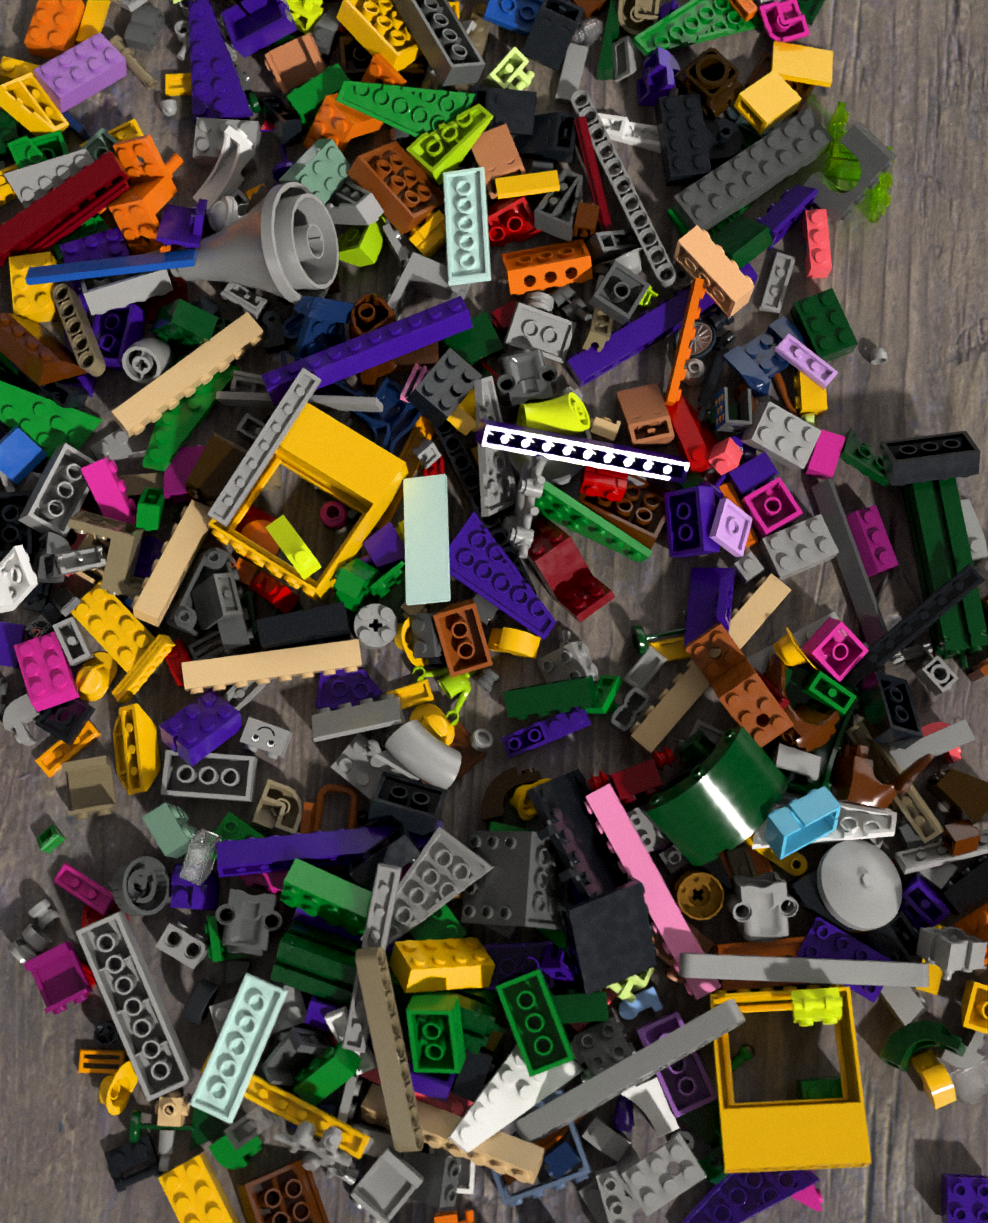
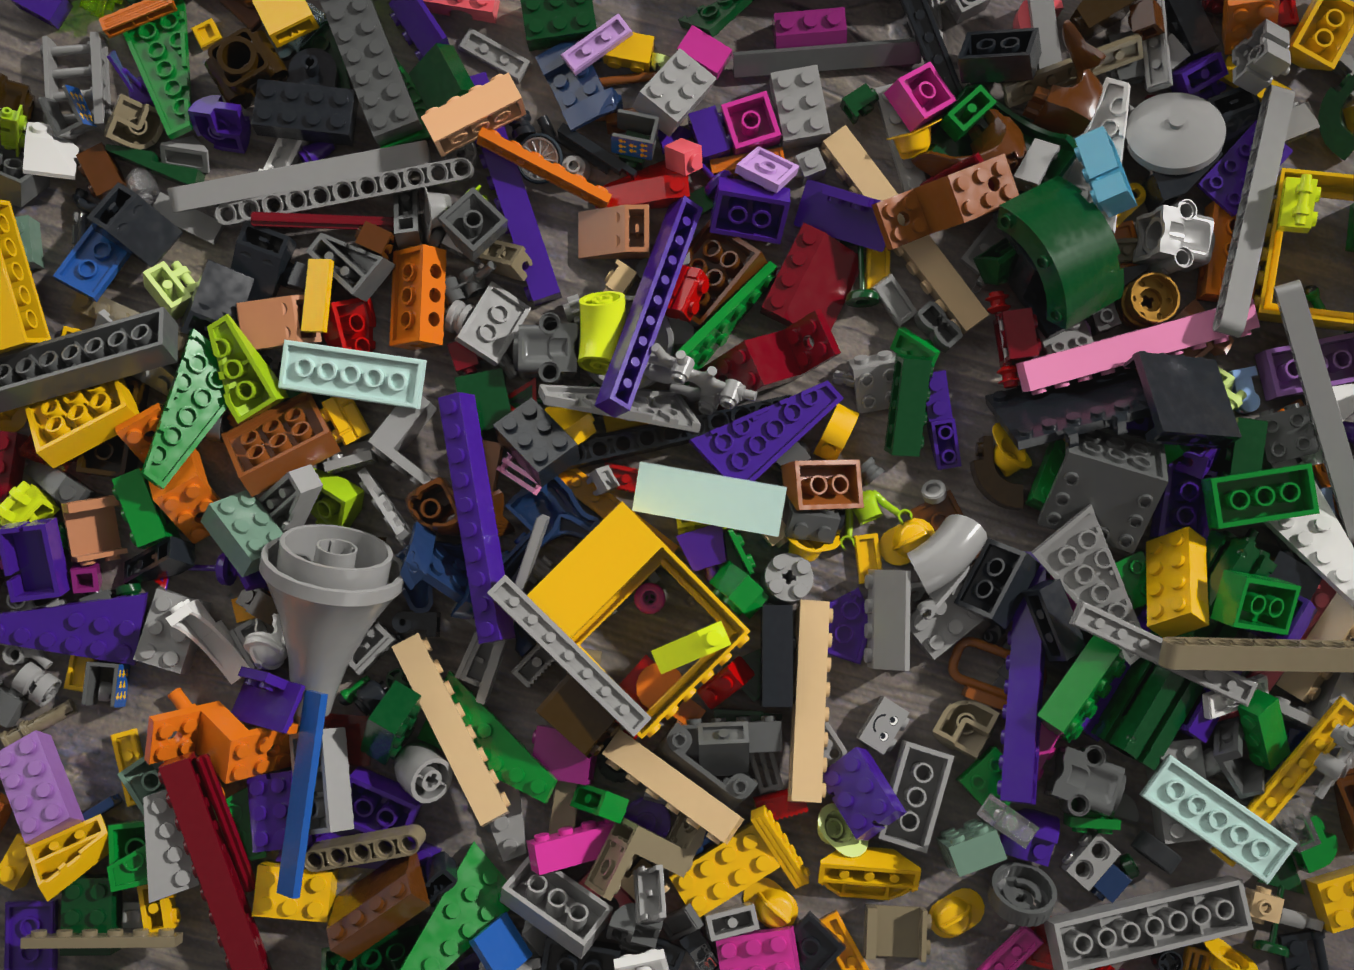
camera: 80 degrees left, 5 degrees up
(116, 838) = (956, 913): none -> yellow piece
(162, 712) = (835, 832): none -> yellowish green piece
(163, 52) = (36, 683): none -> light grey wheel
(166, 967) = (1111, 884): none -> dark blue brick
(178, 113) = (92, 683): none -> dark grey piece
(185, 982) = (1128, 866): none -> dark green tile
(202, 290) = (347, 695): none -> green piece
(255, 67) = (86, 578): none -> magenta brick
(363, 281) = (385, 505): none -> light grey wing
(627, 149) = (297, 176): none -> light grey beam
(644, 593) = (812, 277): none -> dark red slope
(652, 158) = (315, 151): none -> dark purple cone
(733, 50) = (207, 33): none -> yellow tile
(817, 600) = (859, 102): none -> dark green brick

